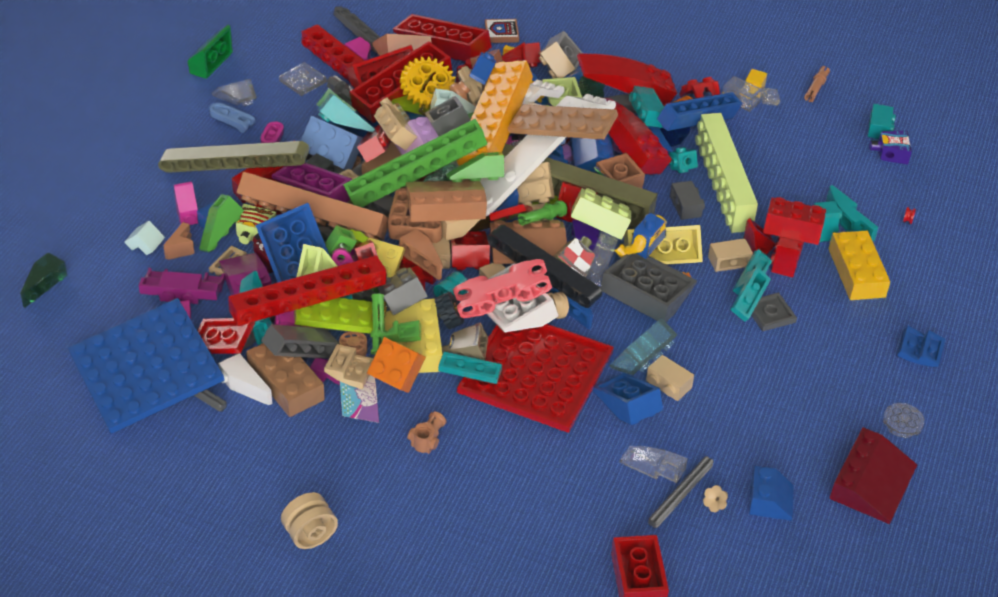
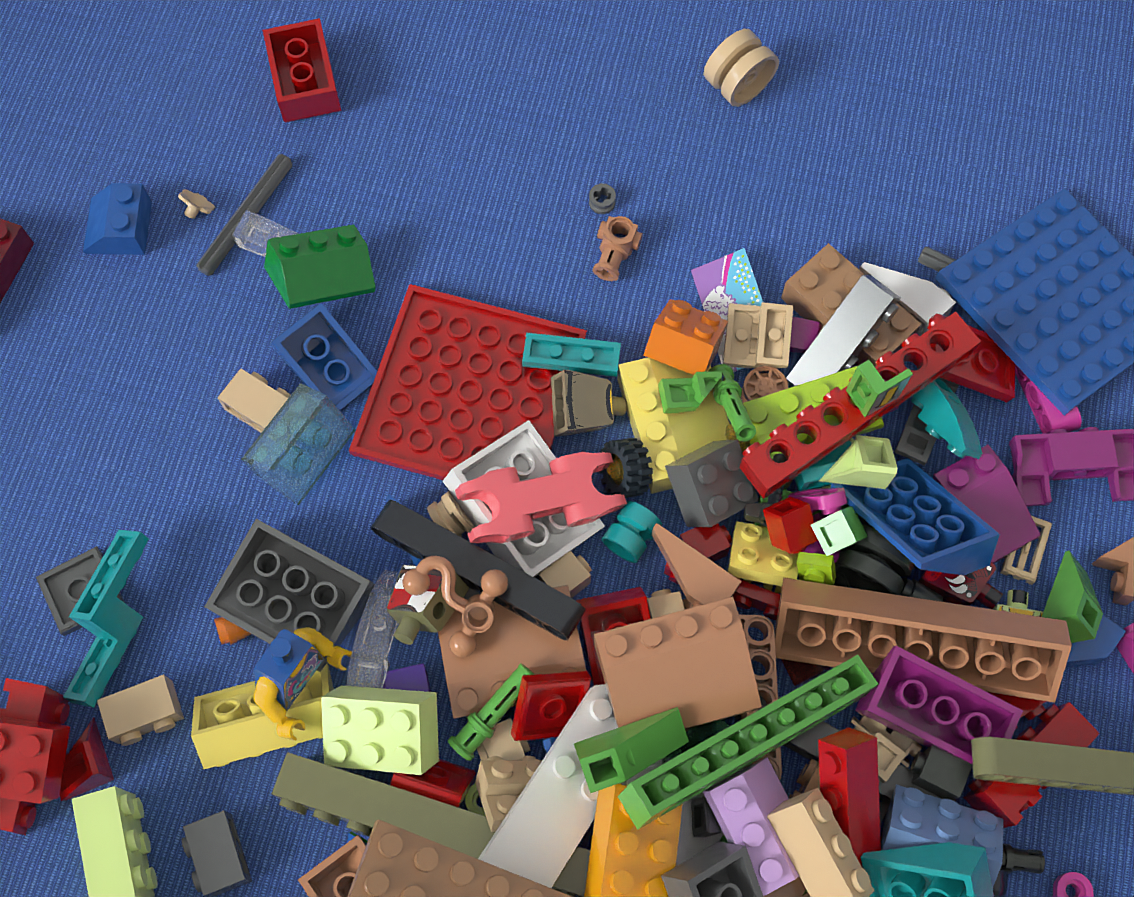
camera: 175 degrees right, 25 degrees up
(302, 265) = (871, 391): none -> bright green panel
(426, 464) = (595, 194): none -> dark grey bush
(552, 239) = (493, 584): none -> nougat piece
(628, 433) = (320, 266): none -> green slope

